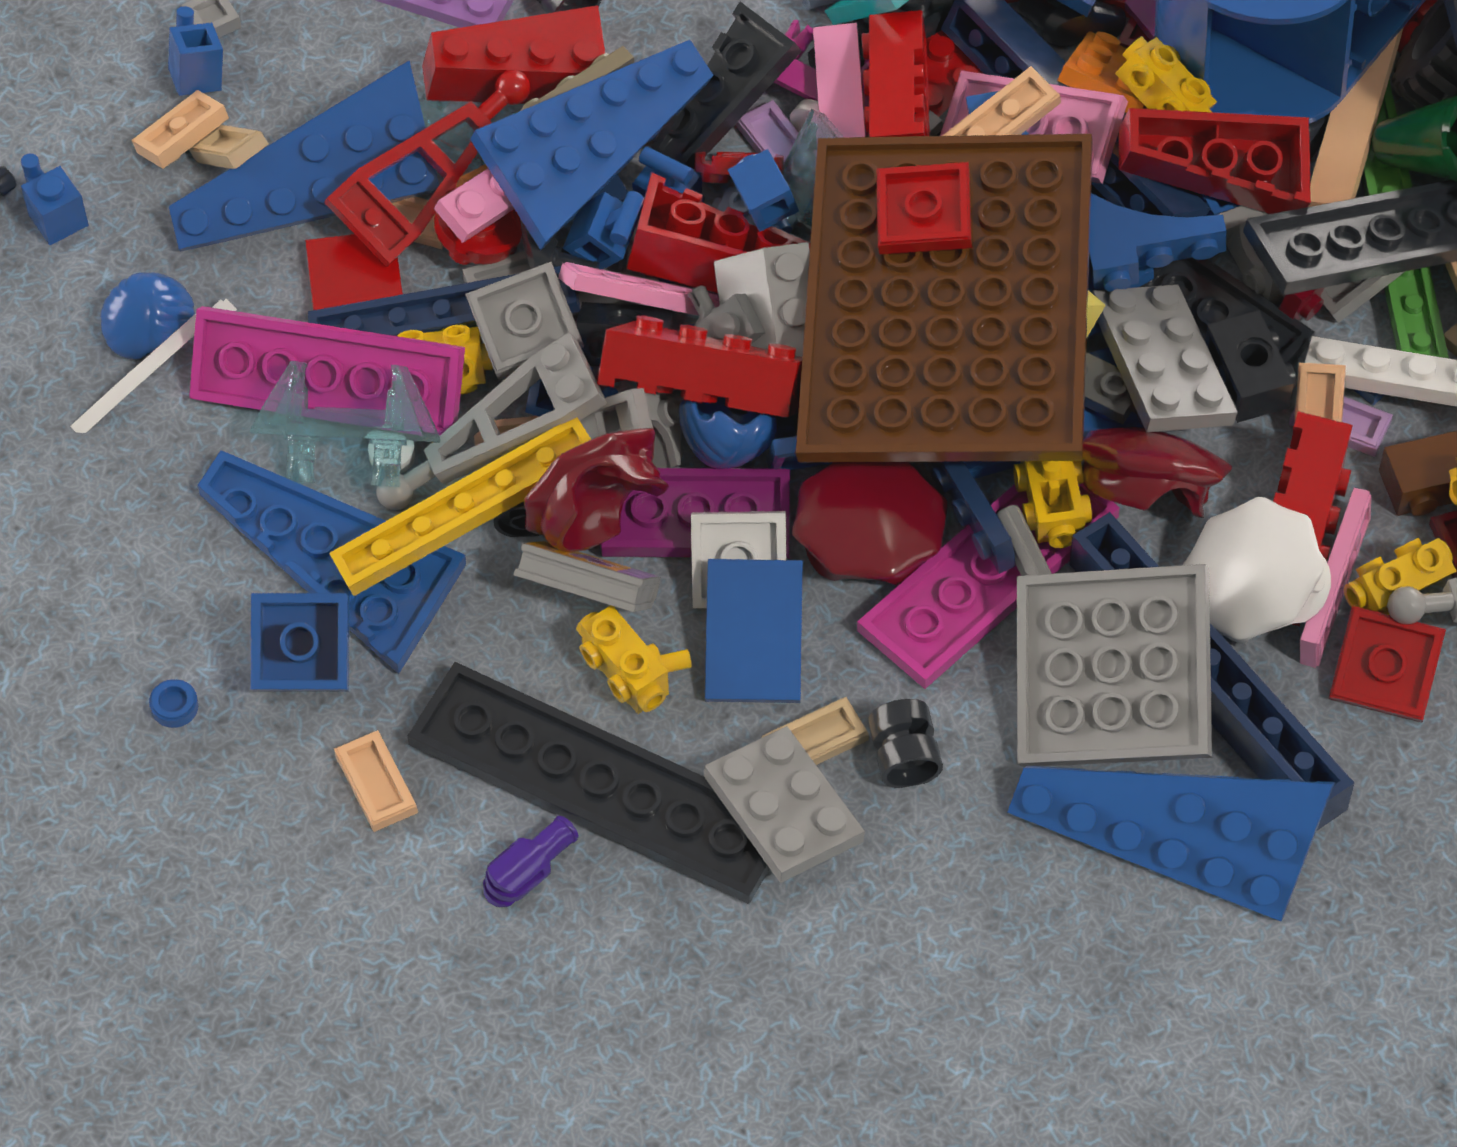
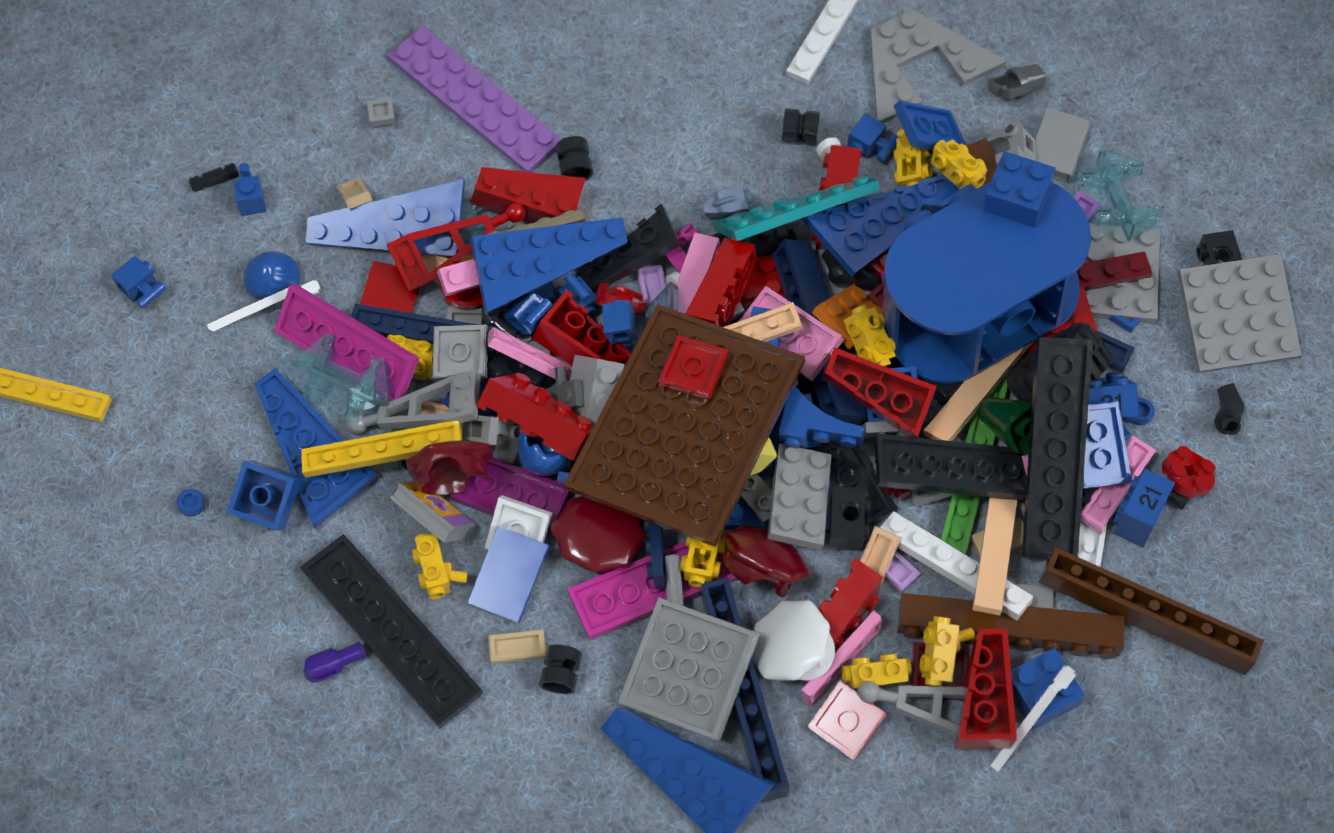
camera: 20 degrees right, 5 degrees up
(180, 129) = (335, 173): light nougat plate -> none
(194, 55) = (359, 133): blue brick -> none
(376, 781) = (275, 585): light nougat tile -> none
(784, 804) = (478, 680): light grey plate -> none

